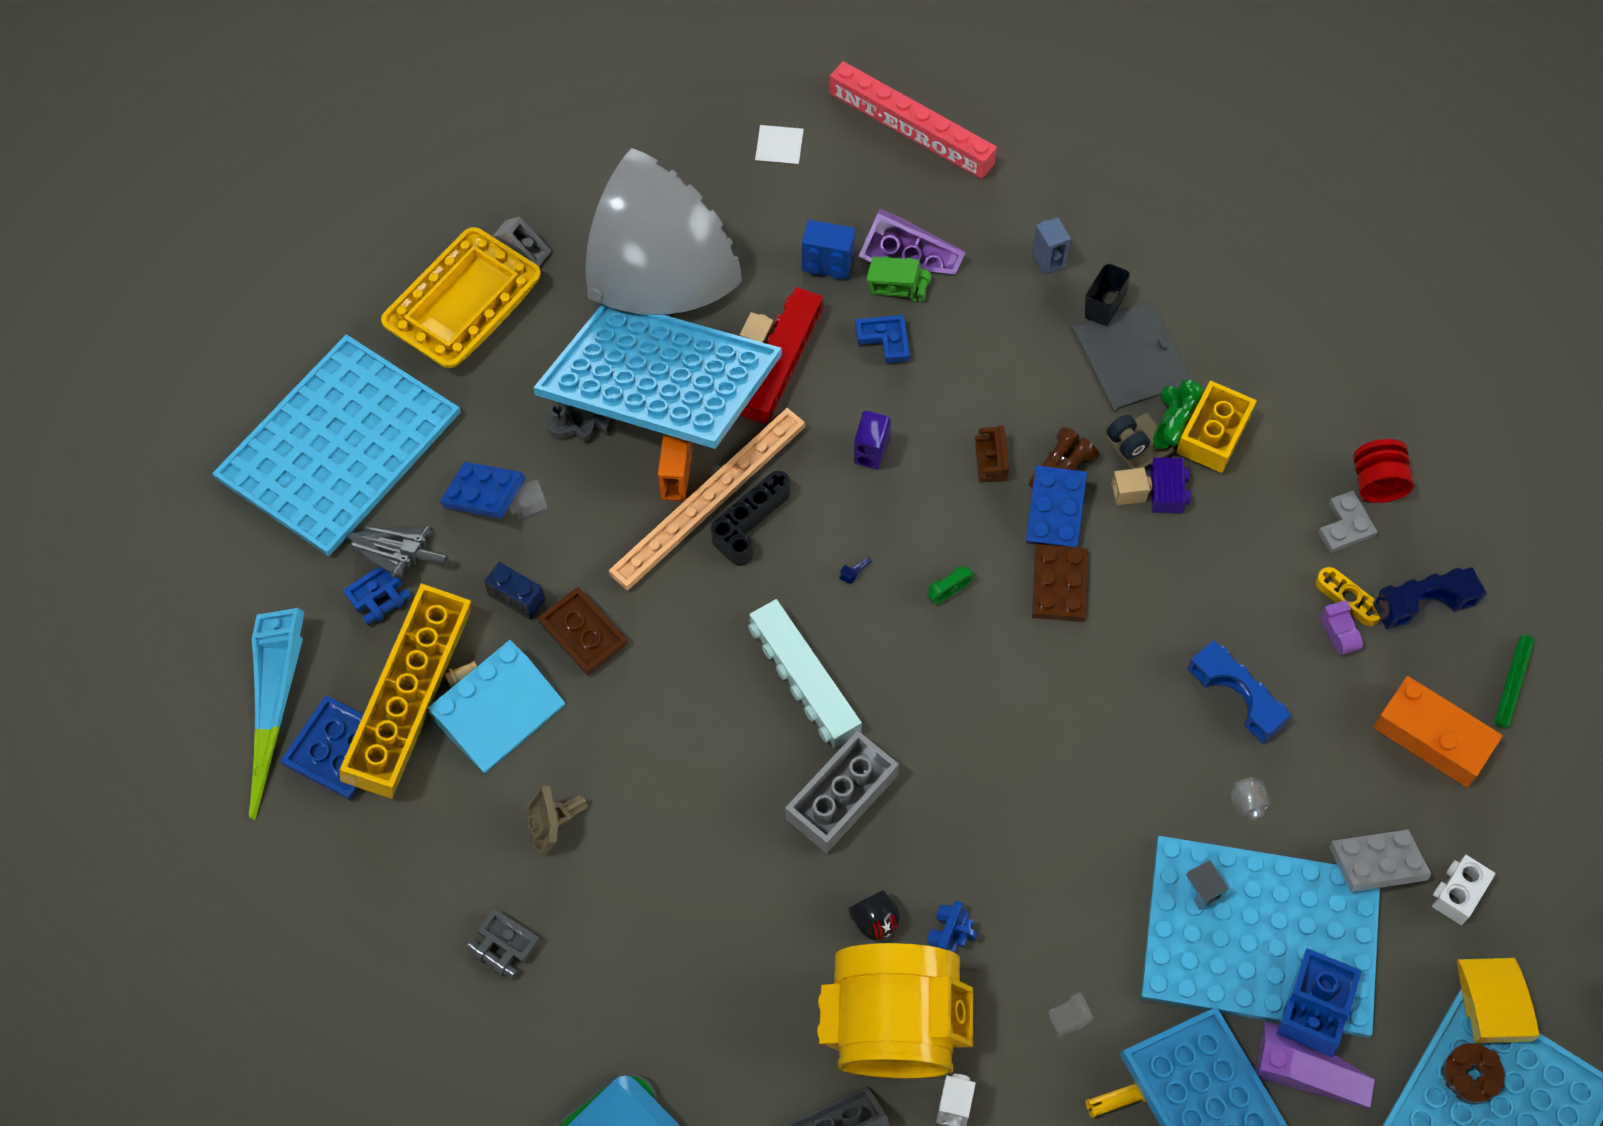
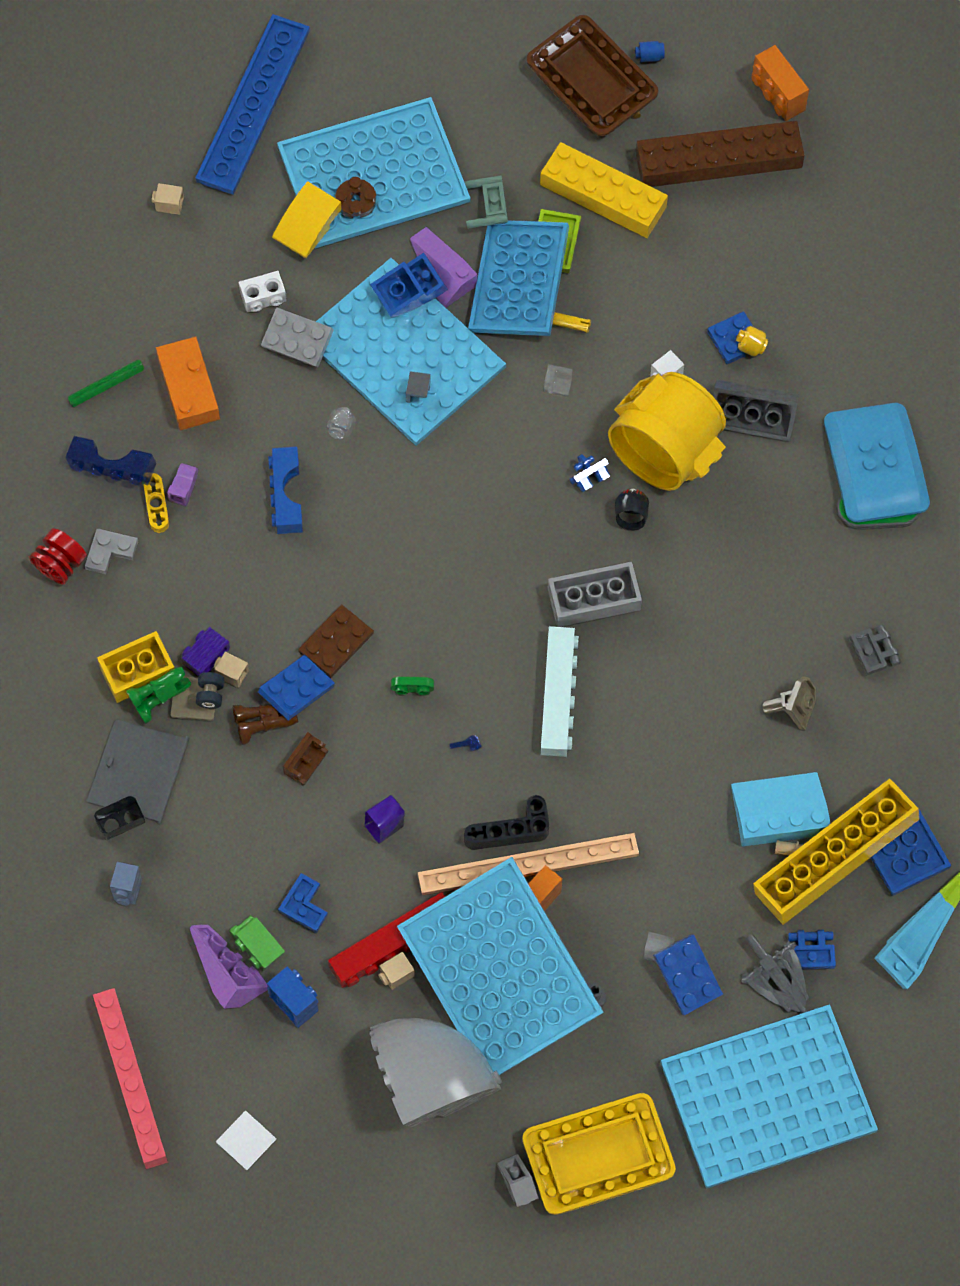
camera: 145 degrees left, 5 degrees up
(514, 590) = (714, 882): dark blue brick -> none
(582, 631) = (686, 824): reddish brown plate -> none

